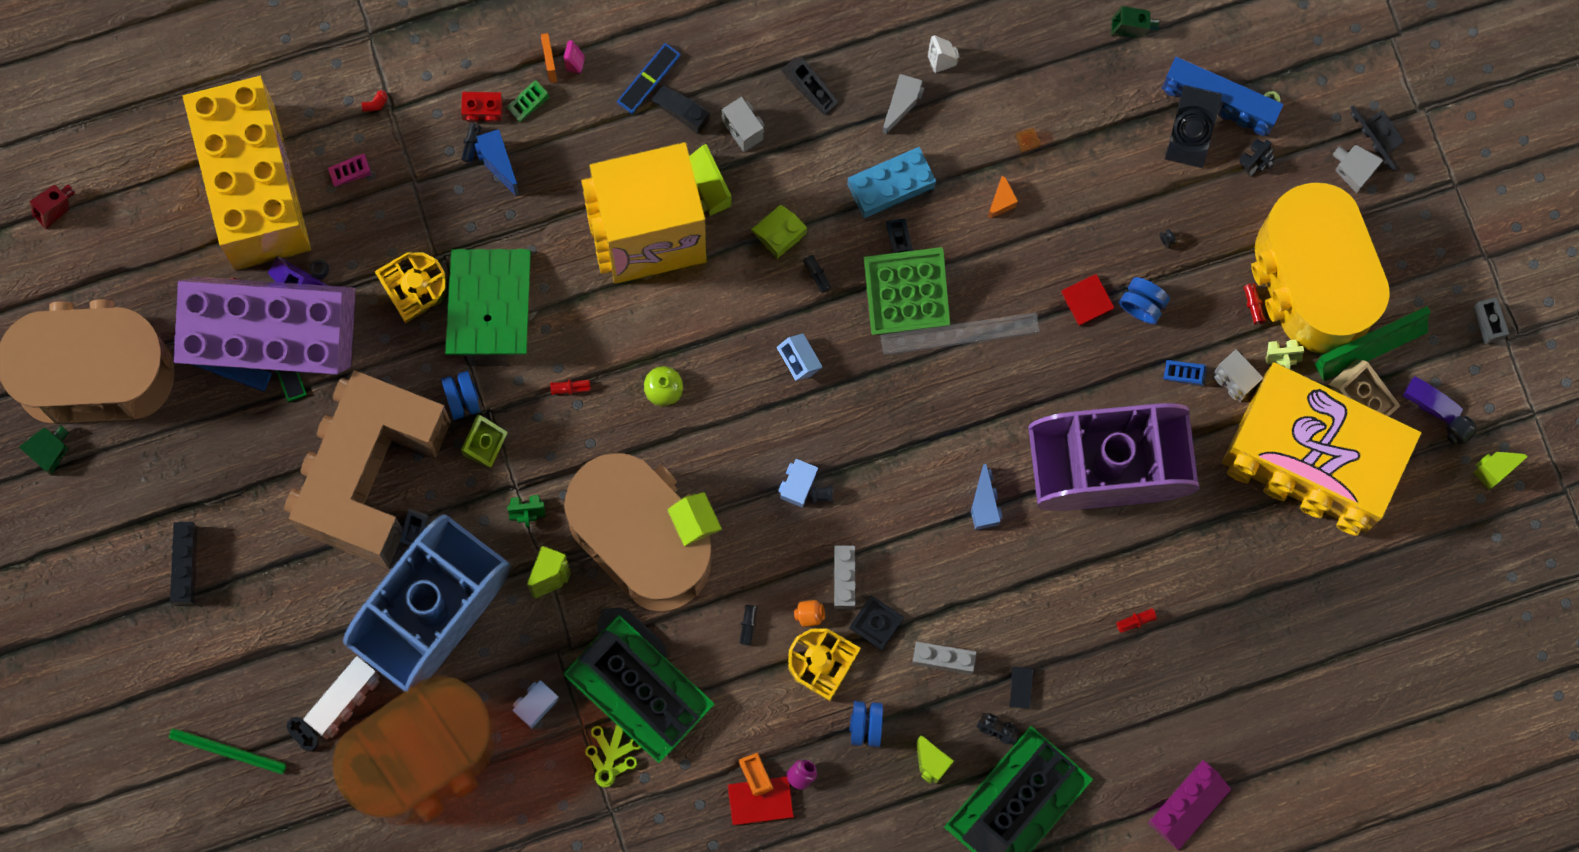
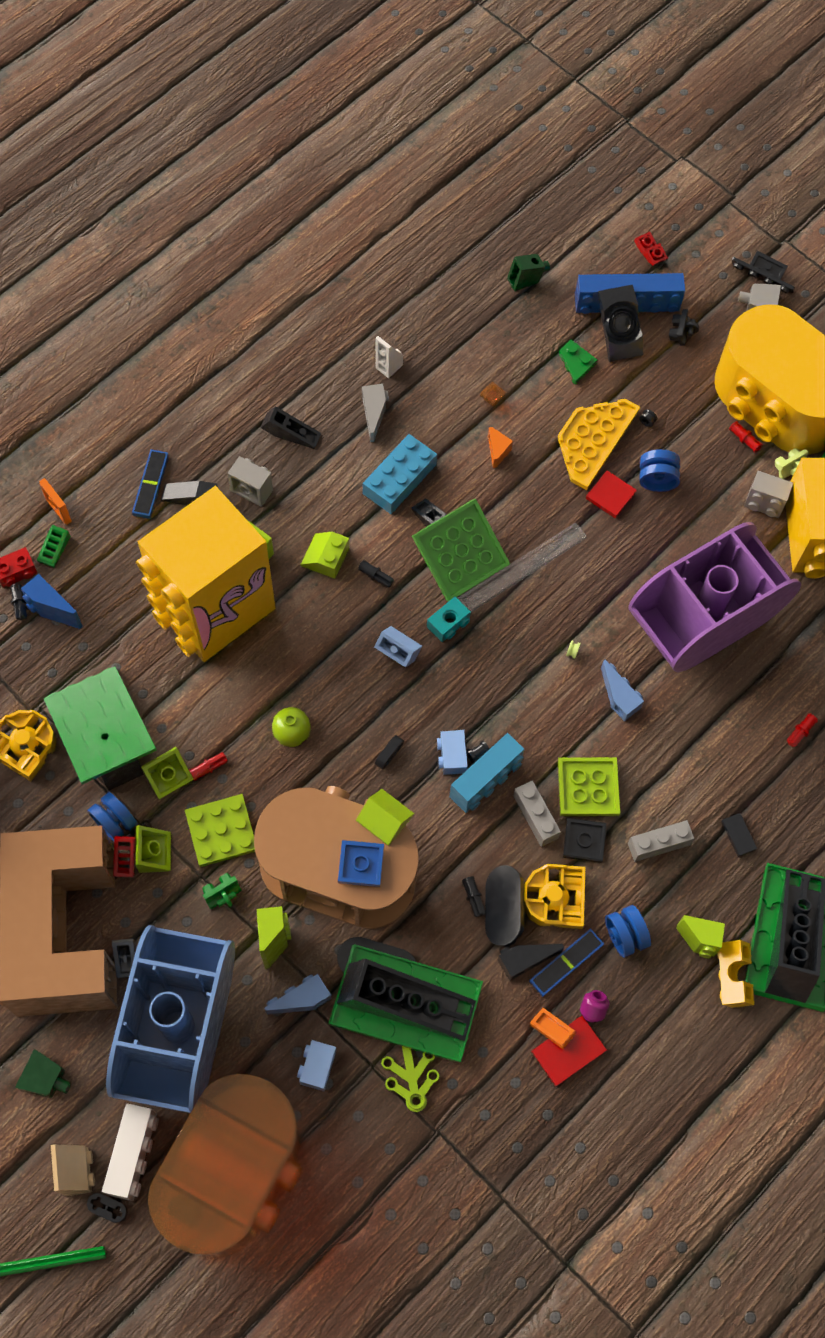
camera: 25 degrees left, 10 degrees down
(287, 688) = (72, 1169): none -> tan slope
(298, 597) = (42, 1077): none -> dark green torso
(449, 449) = (121, 871): none -> red slope
(529, 376) = (167, 773): none -> lime slope
(552, 452) = (220, 830): none -> lime plate
(555, 640) = (305, 997): none -> medium blue slope
(573, 58) = (77, 493): dark pink slope -> none
(651, 551) = (360, 863): none -> blue plate
(740, 454) = (389, 752): none -> black beam
(762, 701) = (523, 958): none -> black slope
(770, 646) = (504, 906): none -> black tile
(800, 724) = (566, 962): none -> black tile
(809, 613) = (523, 859): orange head -> none
(817, 518) = (487, 773): none -> dark azure brick
(868, 344) = (452, 610): none -> teal brick
(906, 575) = (588, 786): none -> lime plate
(947, 794) = (732, 957): none -> yellow arch
(963, 438) = (573, 649): none -> yellowish green bush
(1007, 730) = (749, 879): black hinge -> none
(1102, 231) = (592, 436): none -> yellow plate
(1131, 142) = (577, 360): none -> green wing
(1191, 381) = (720, 508): blue slope -> none
(1276, 54) = (650, 249): none -> red slope

